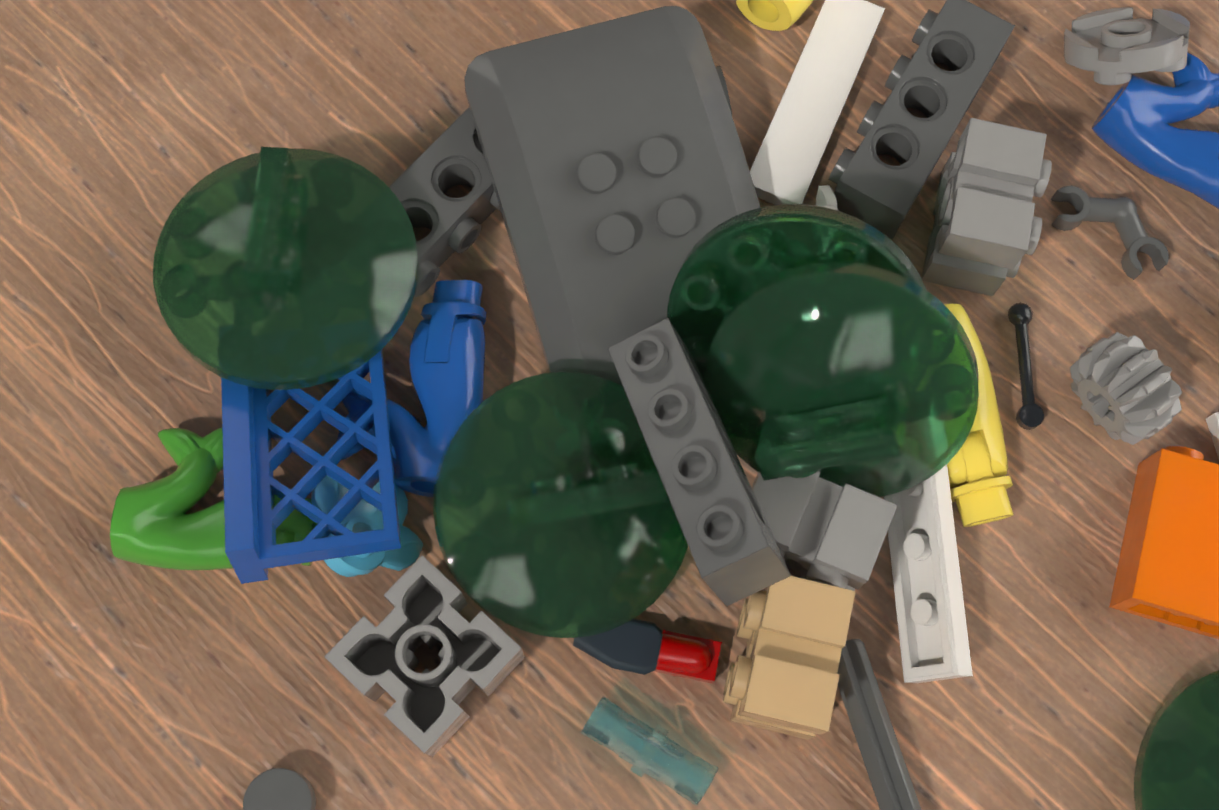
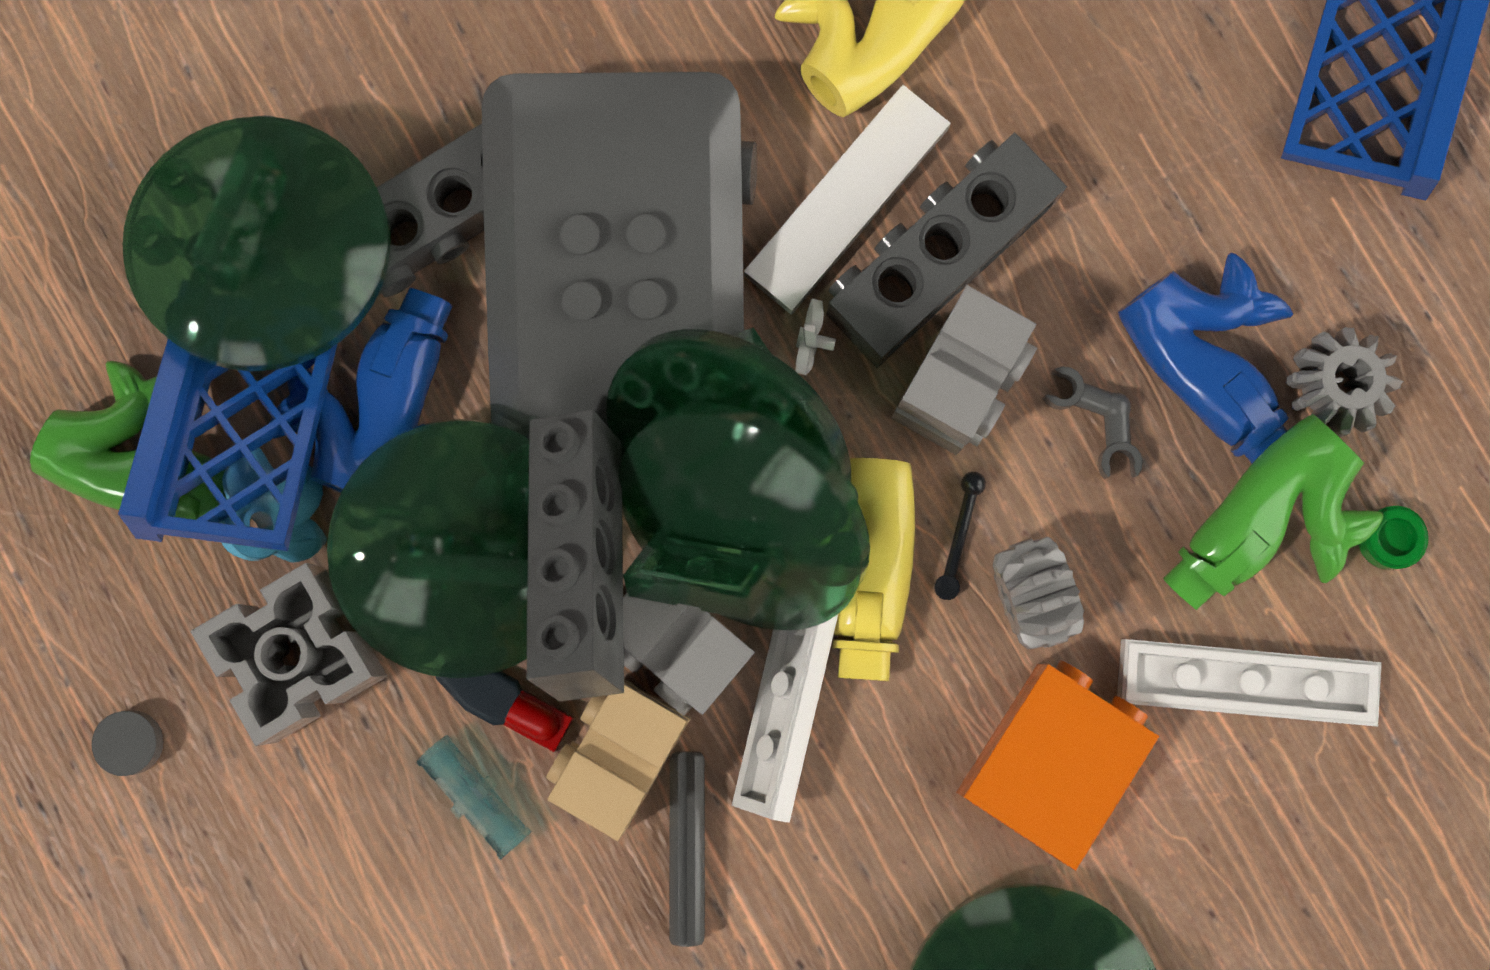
camera: 20 degrees right, 10 degrees up
(1119, 45) = (1179, 235): light grey plate -> none

